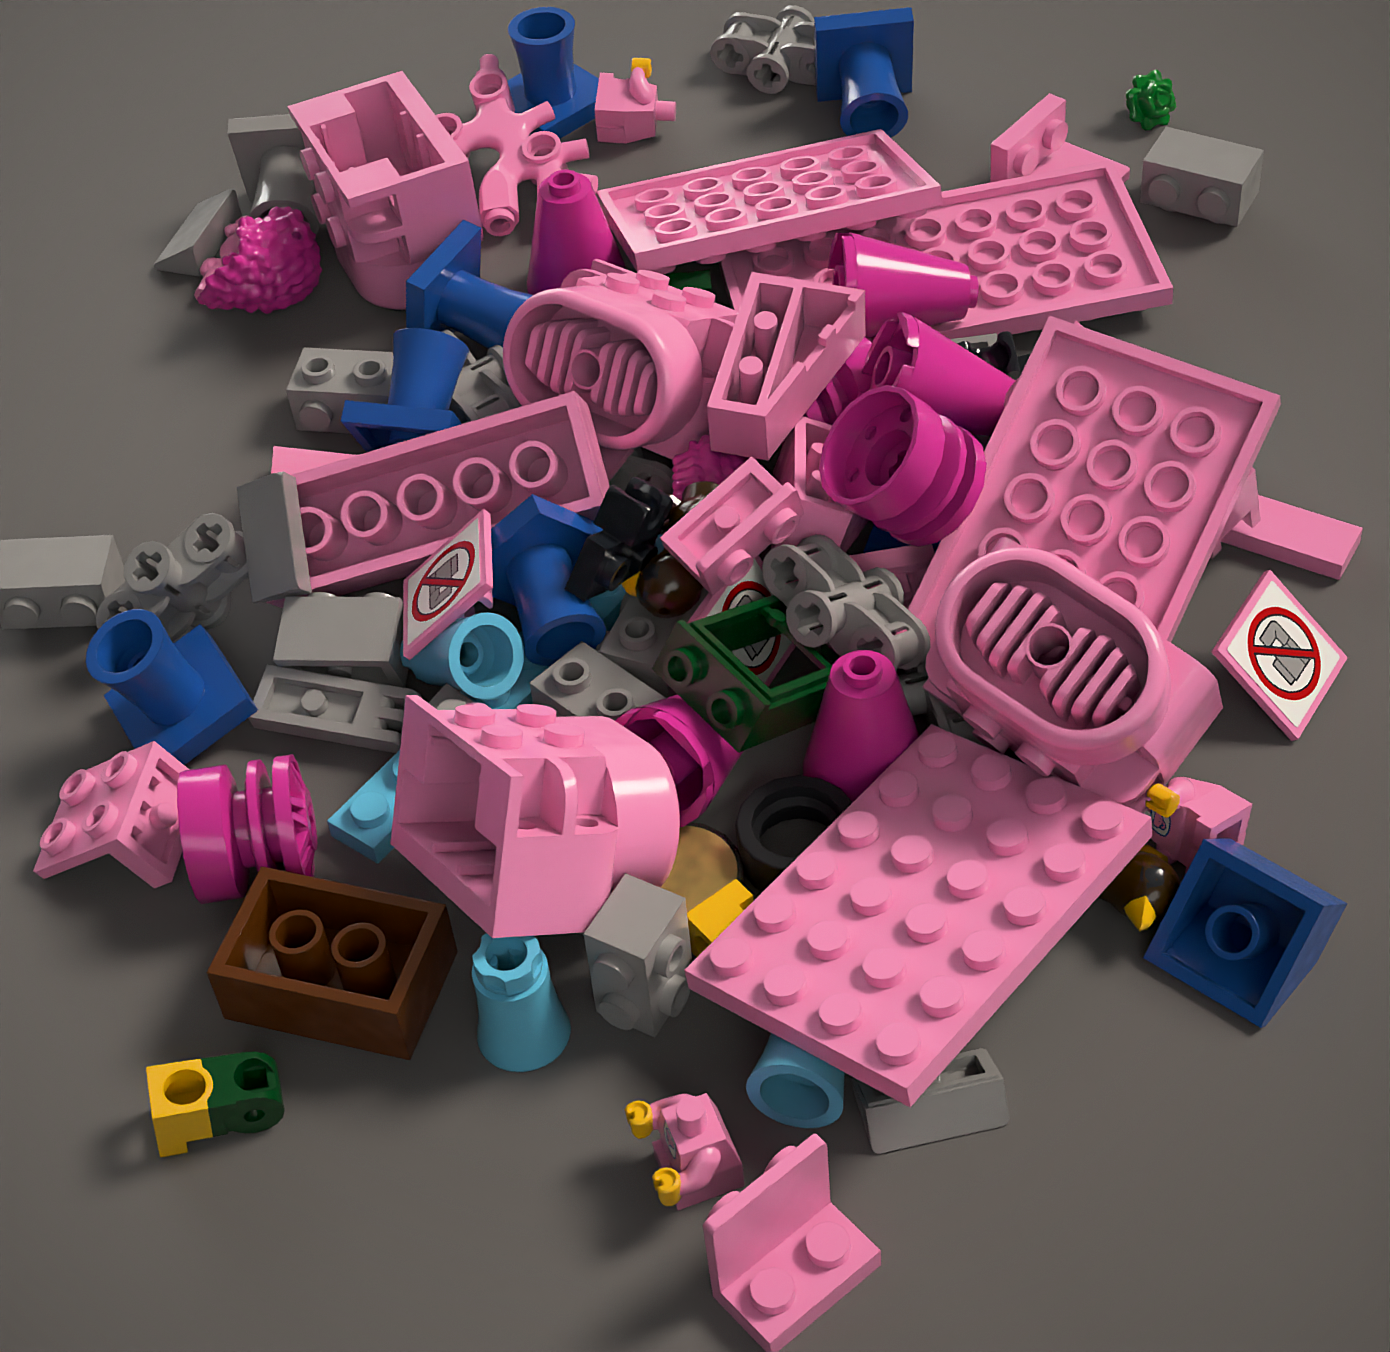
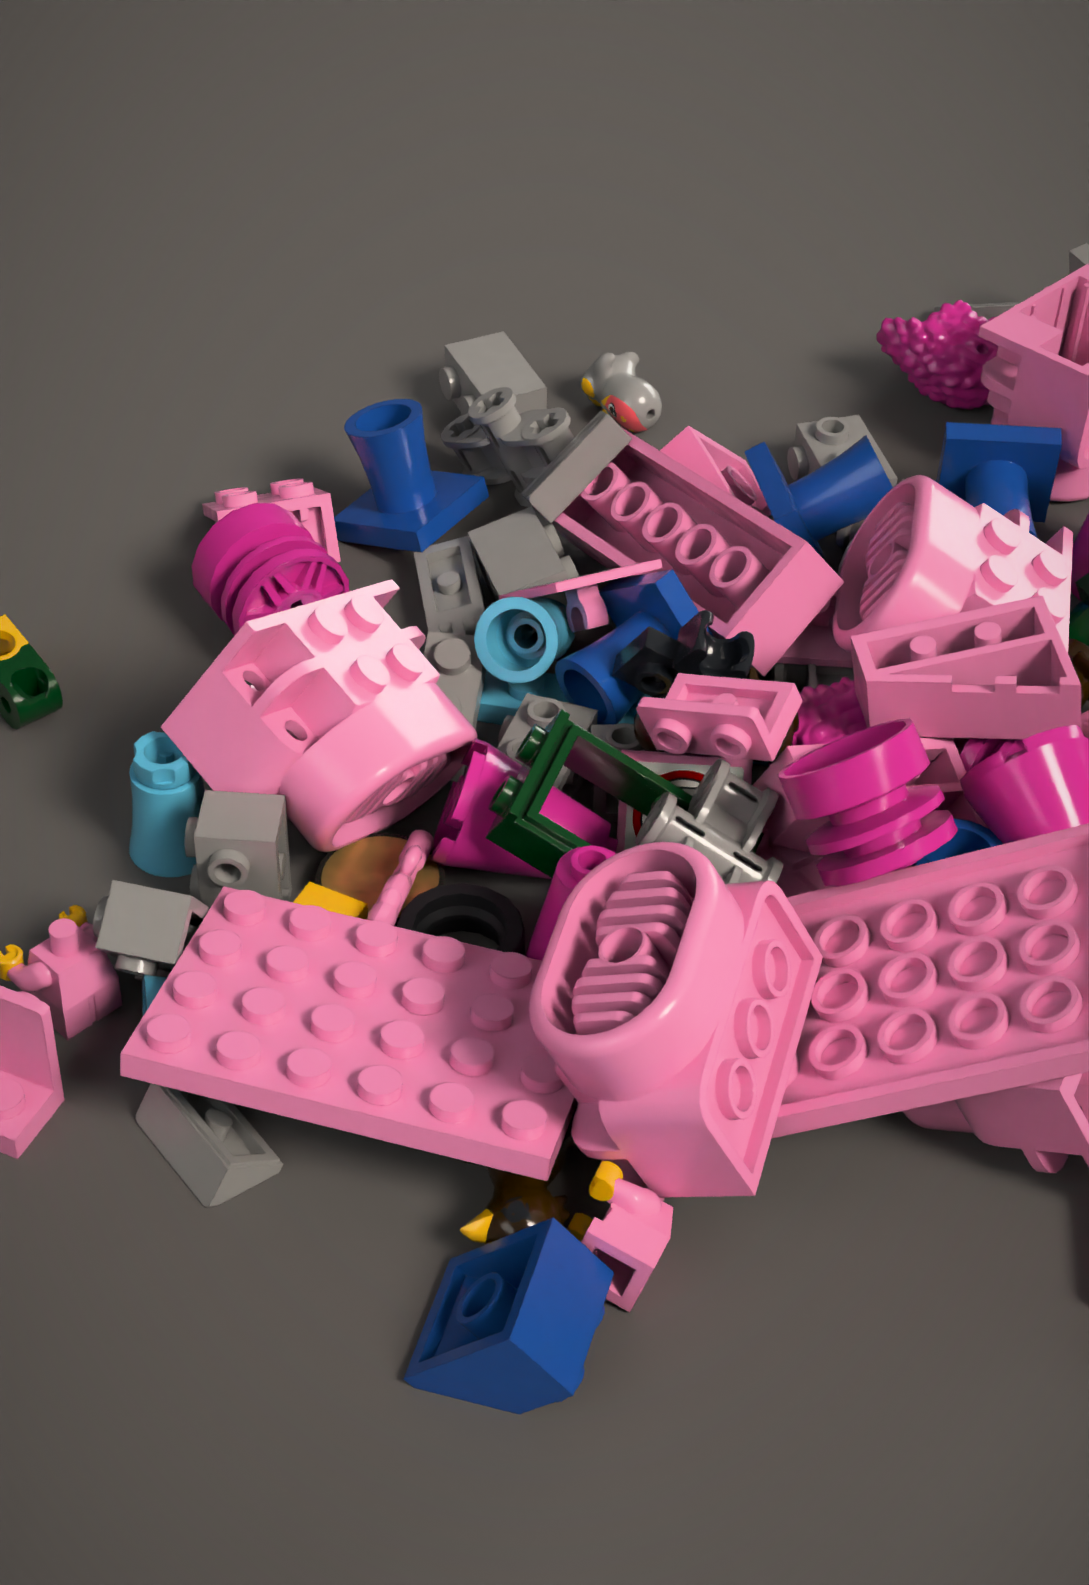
camera: 60 degrees right, 5 degrees down
(134, 498) = (623, 396): none -> light grey animal
(334, 962) = (147, 665): reddish brown brick -> none
(709, 1042) = (146, 927): none -> light grey brick
(751, 865) = (400, 882): none -> bright pink animal
(1280, 655) = (908, 1257): piece -> none

